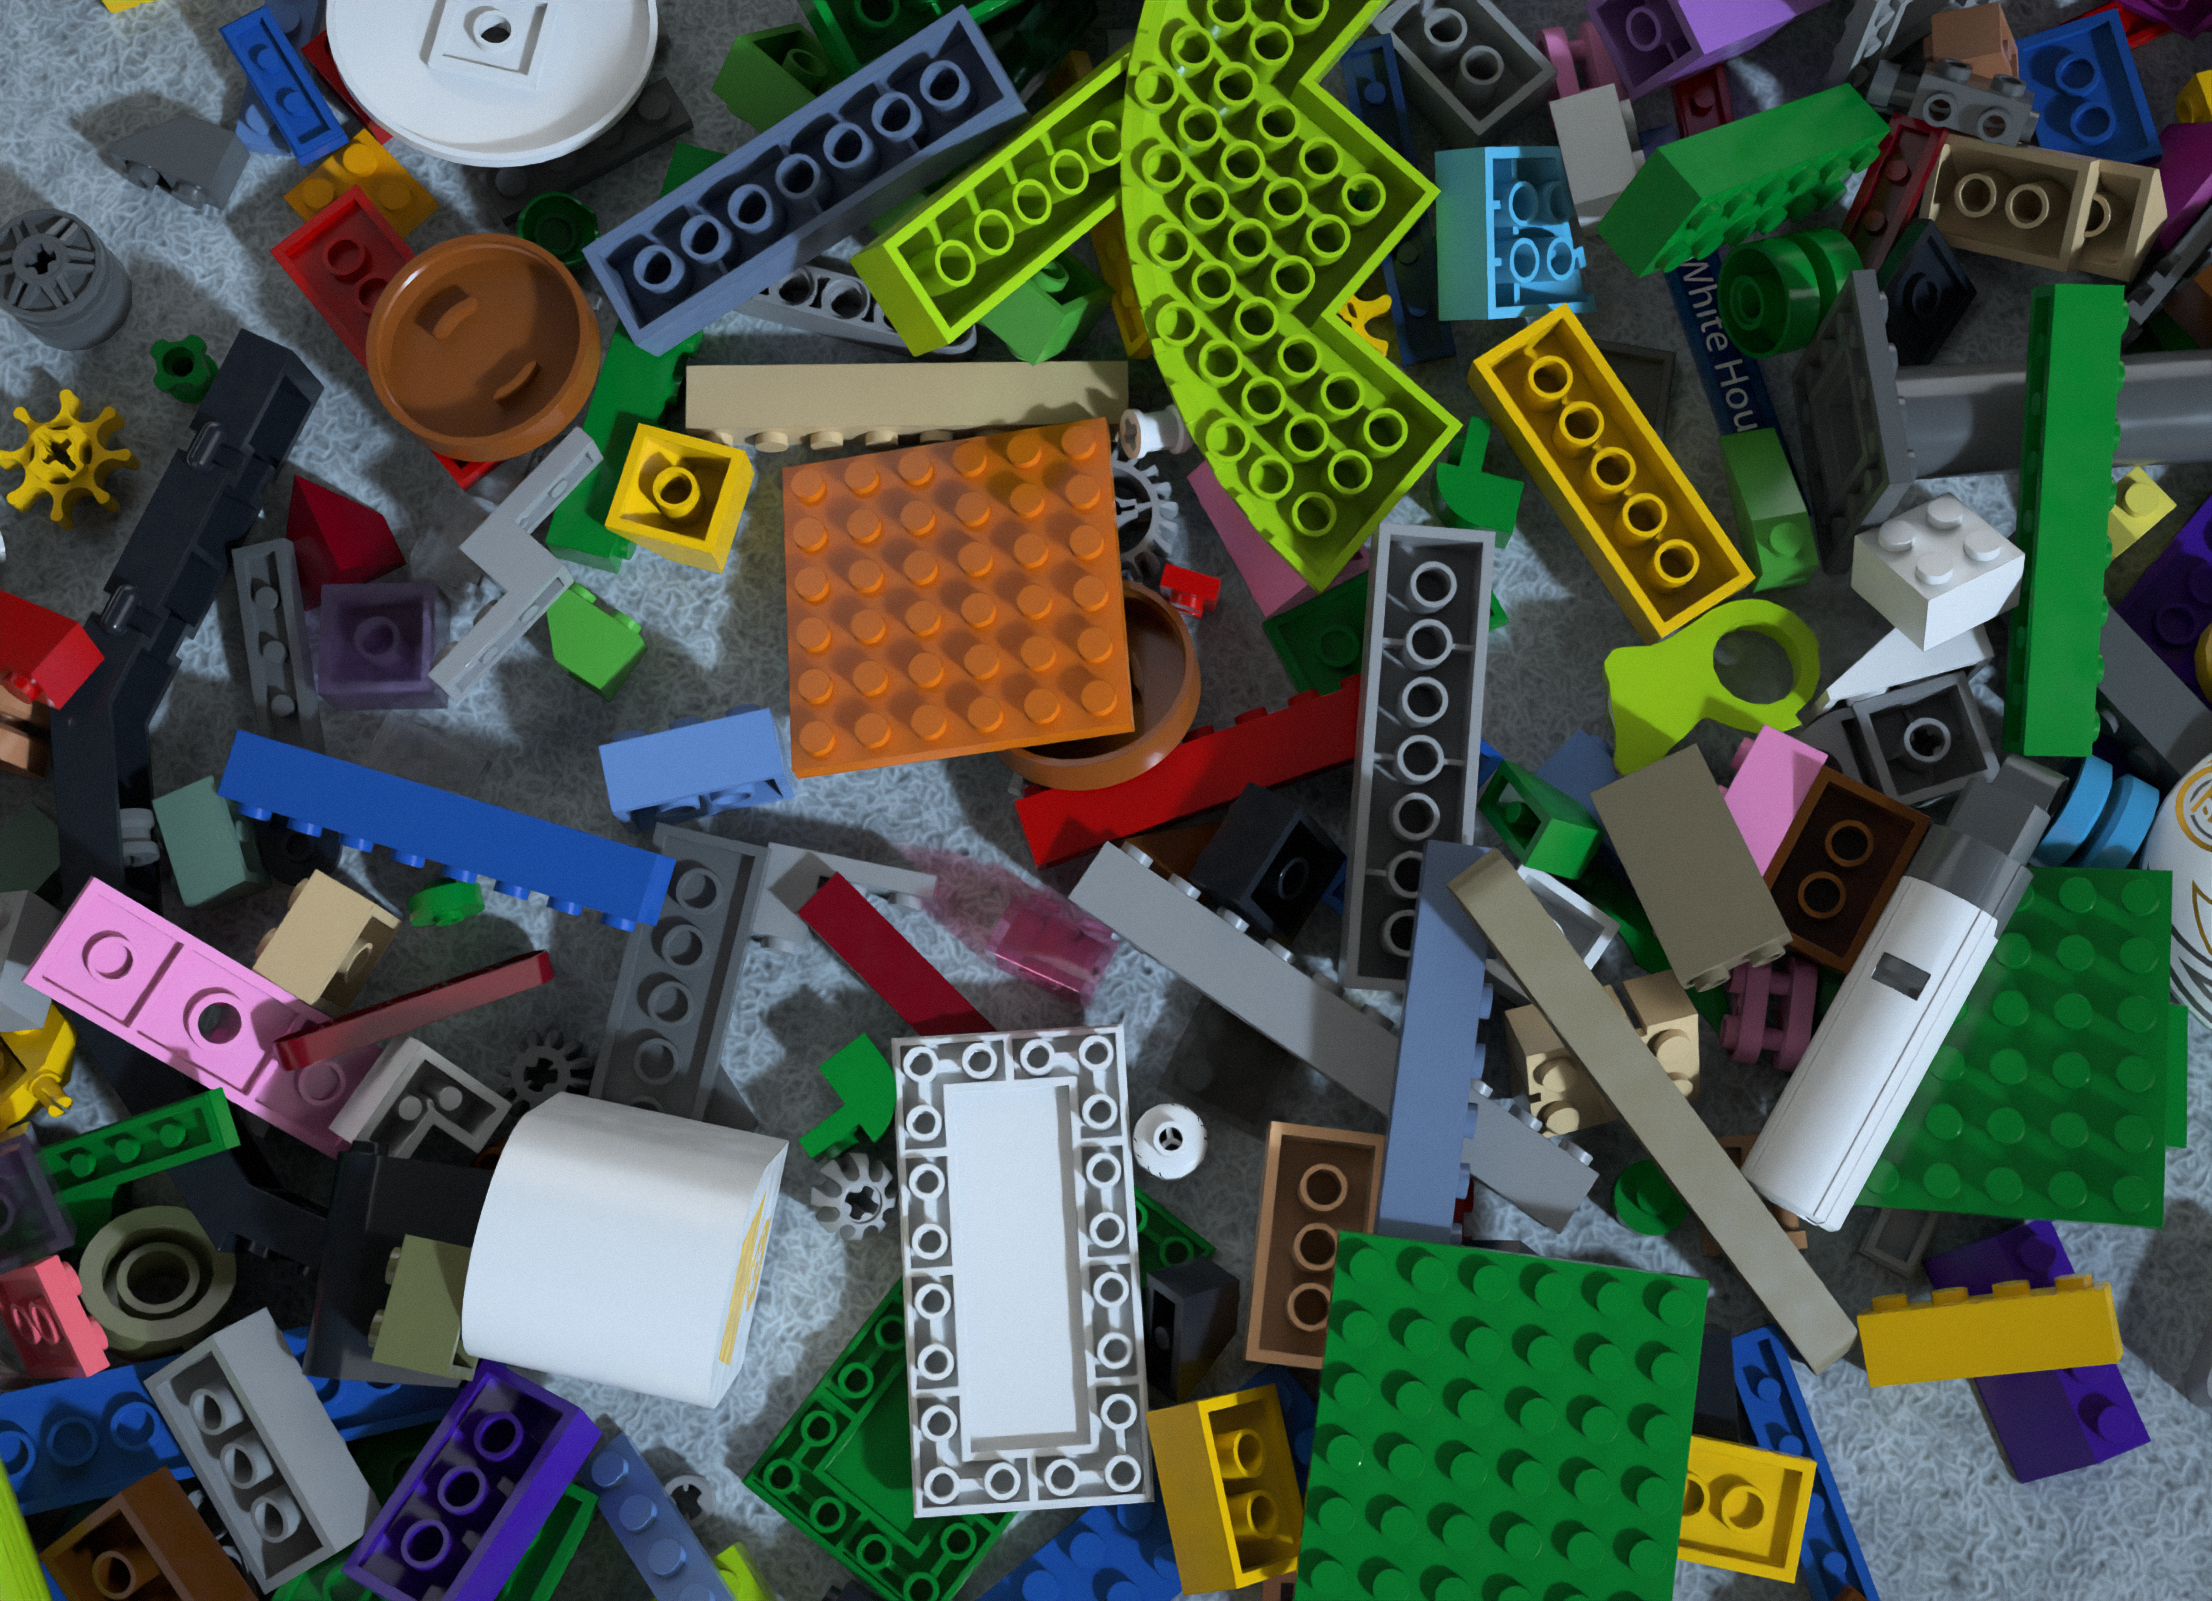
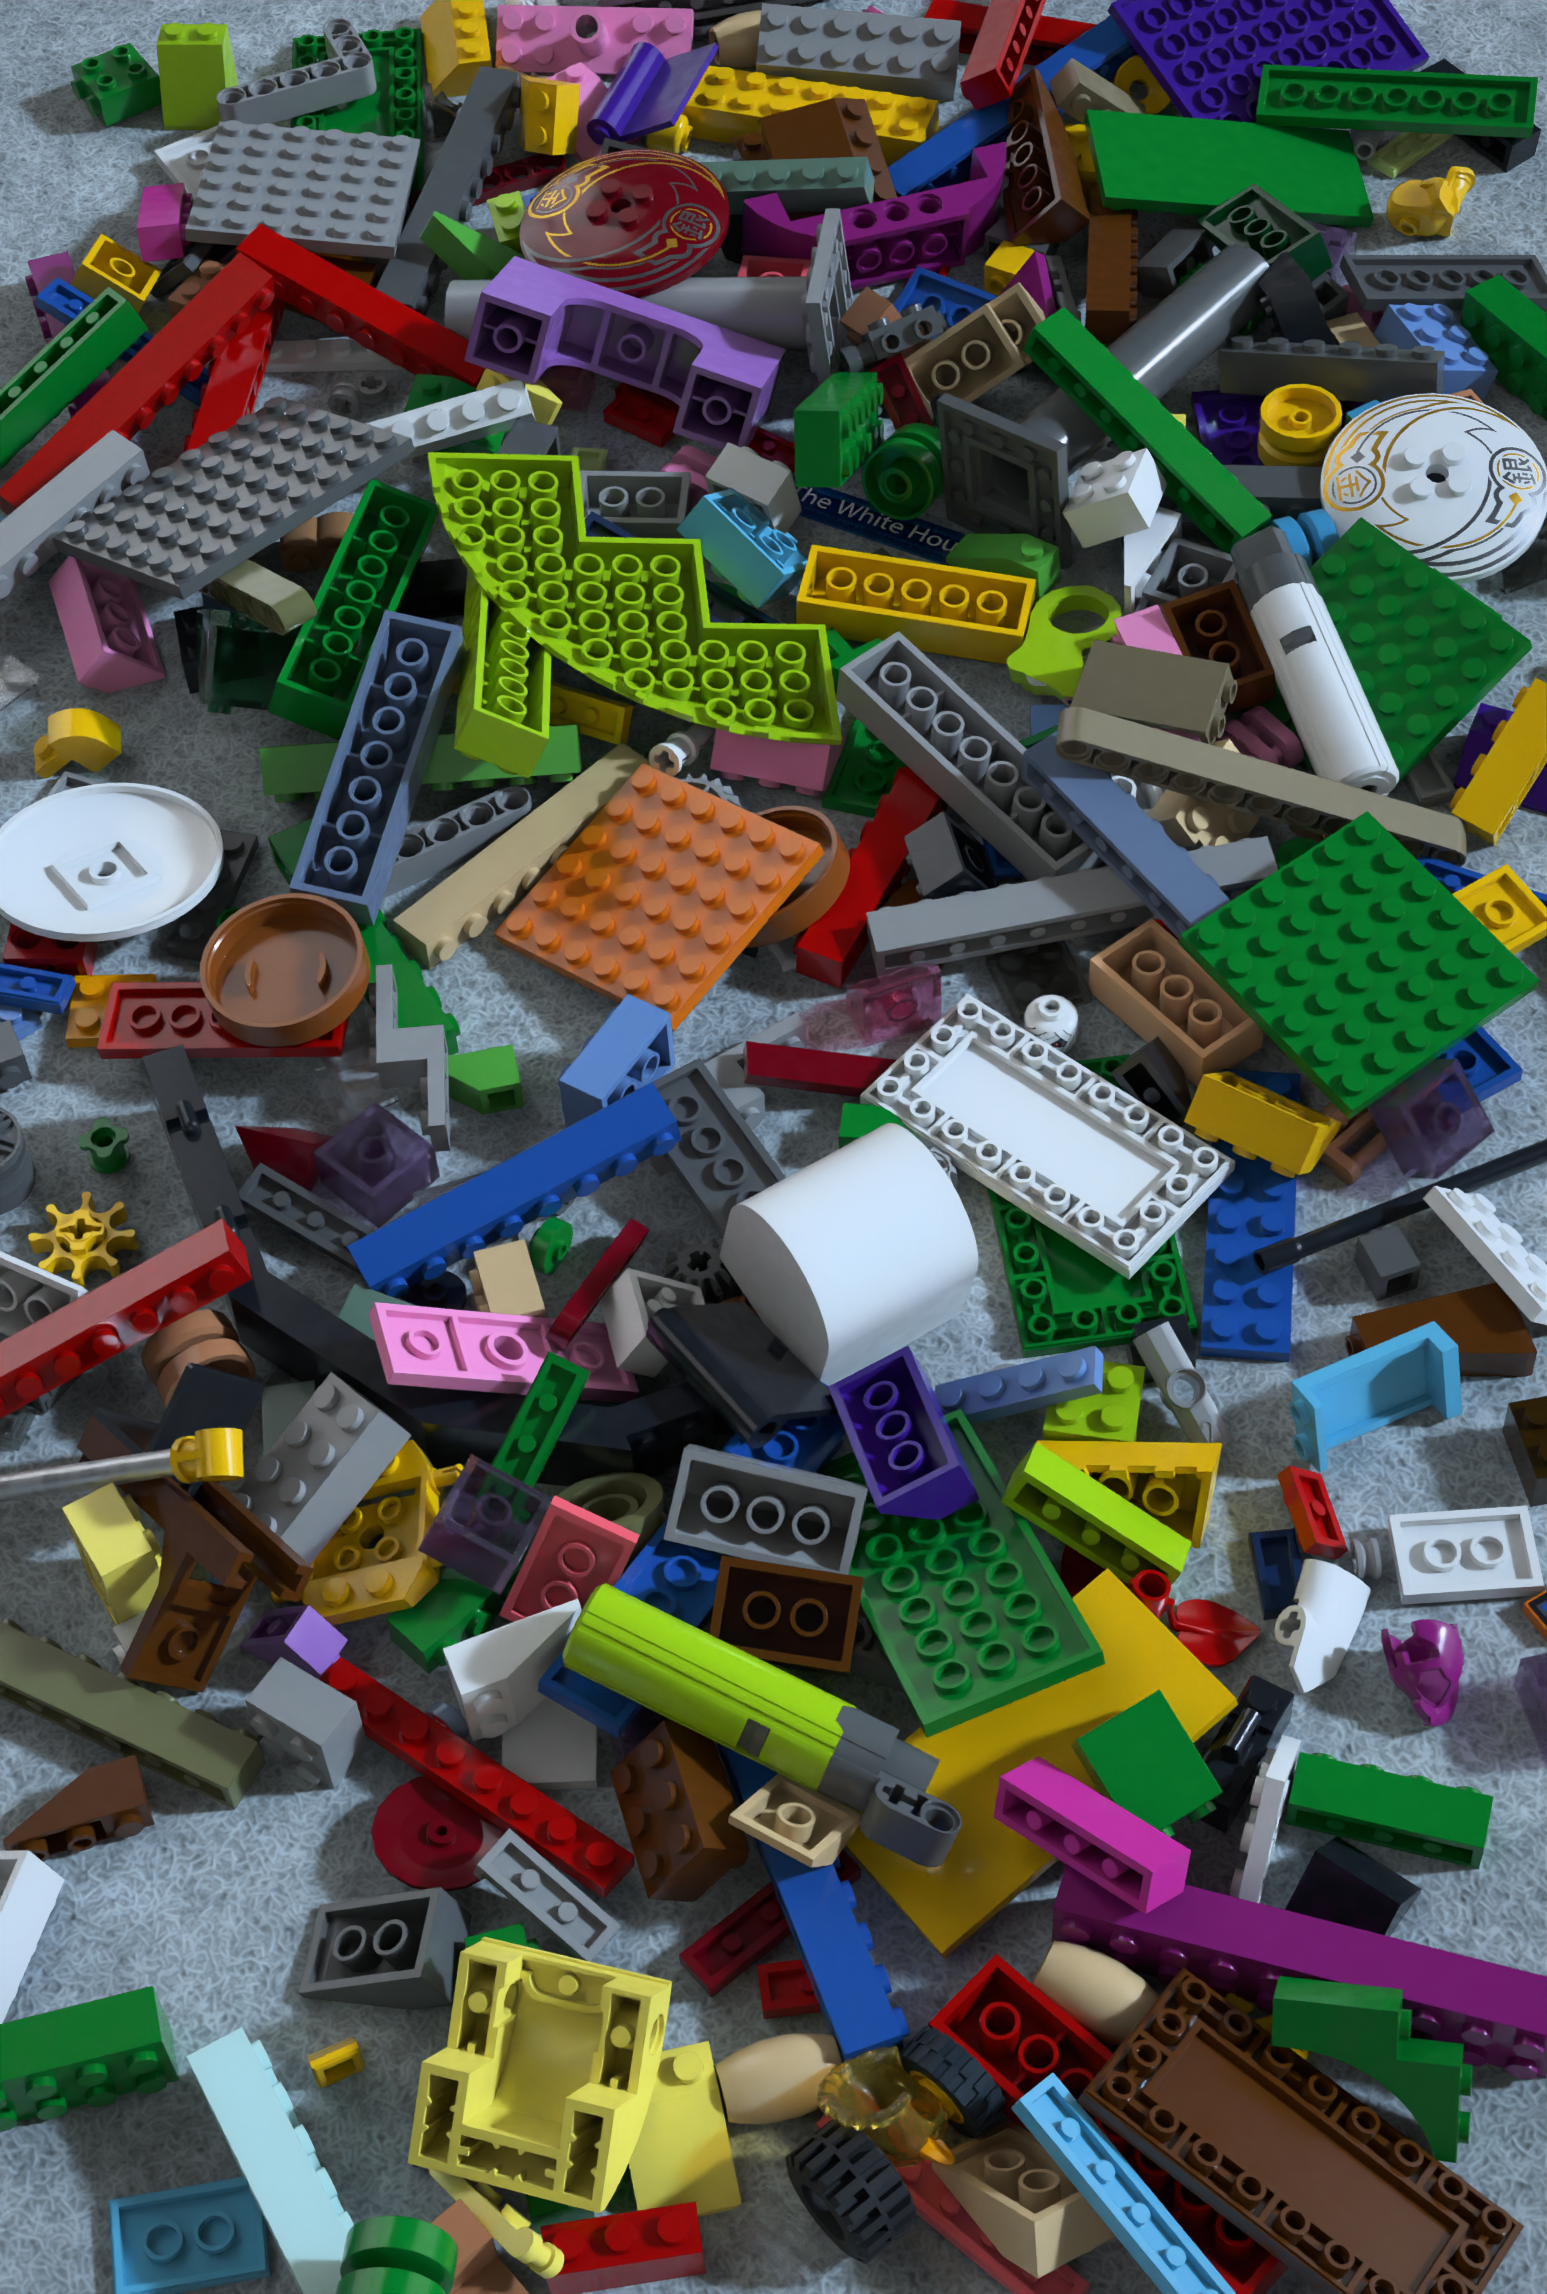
camera: 40 degrees left, 25 degrees down
(424, 1310) = (788, 1332): olive brick -> none
(681, 497) = (462, 973): yellow slope -> none
(1190, 591) = (773, 790): red plate -> none

